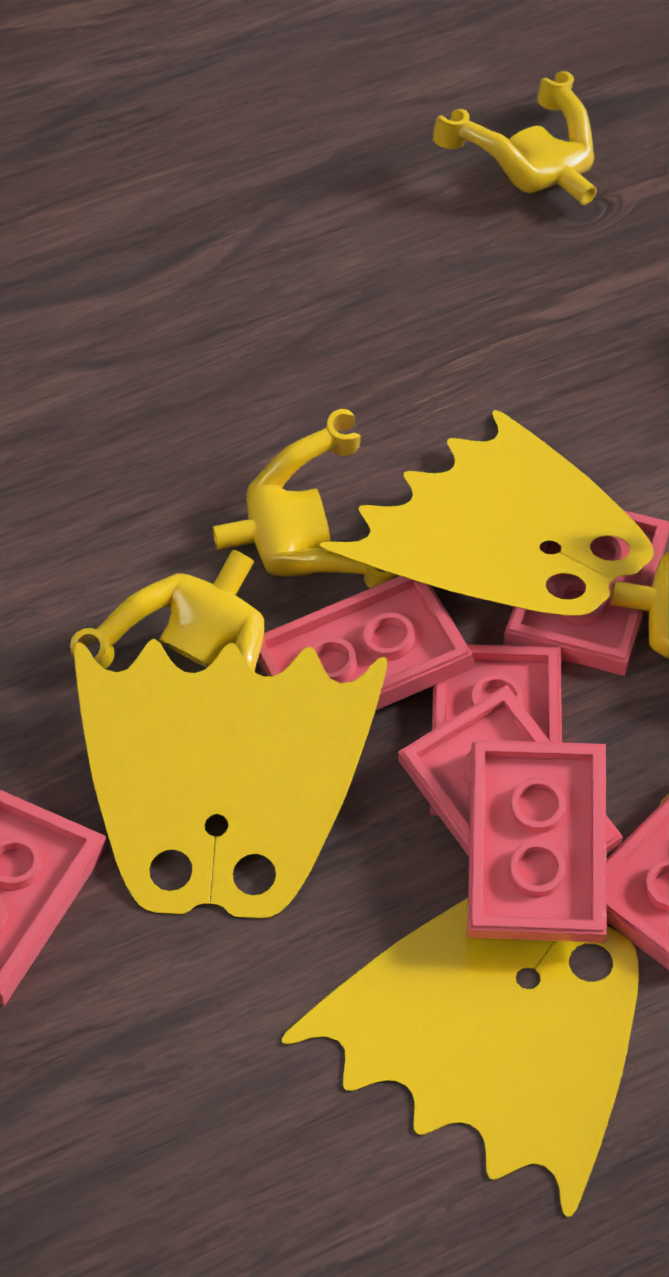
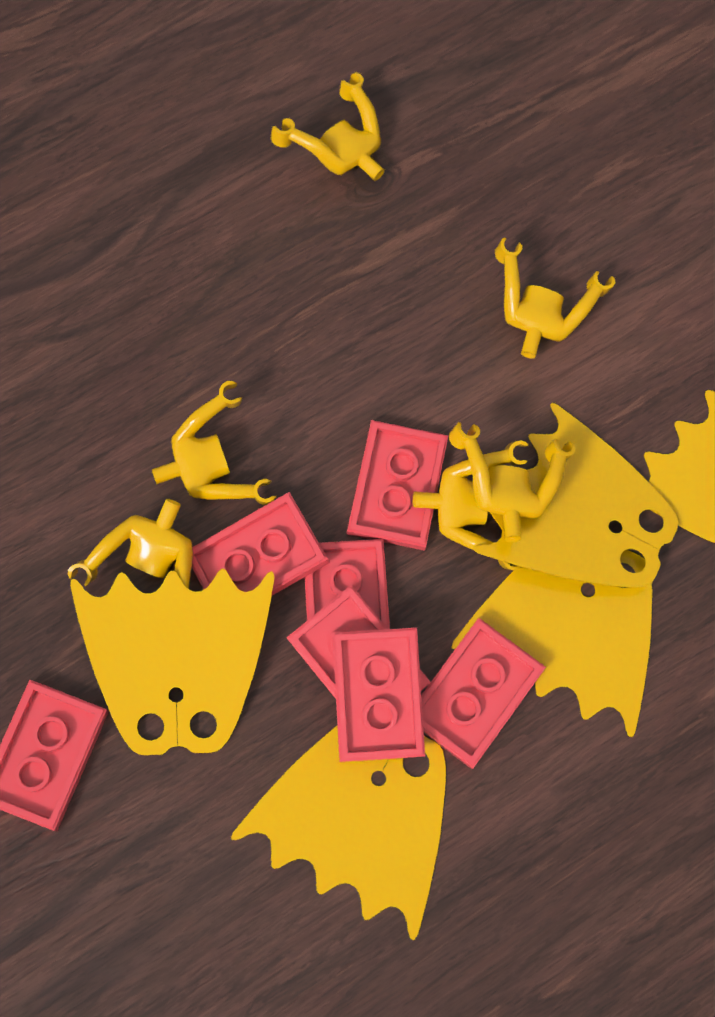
camera: 10 degrees left, 20 degrees up
(486, 518) = (325, 450): yellow piece -> none

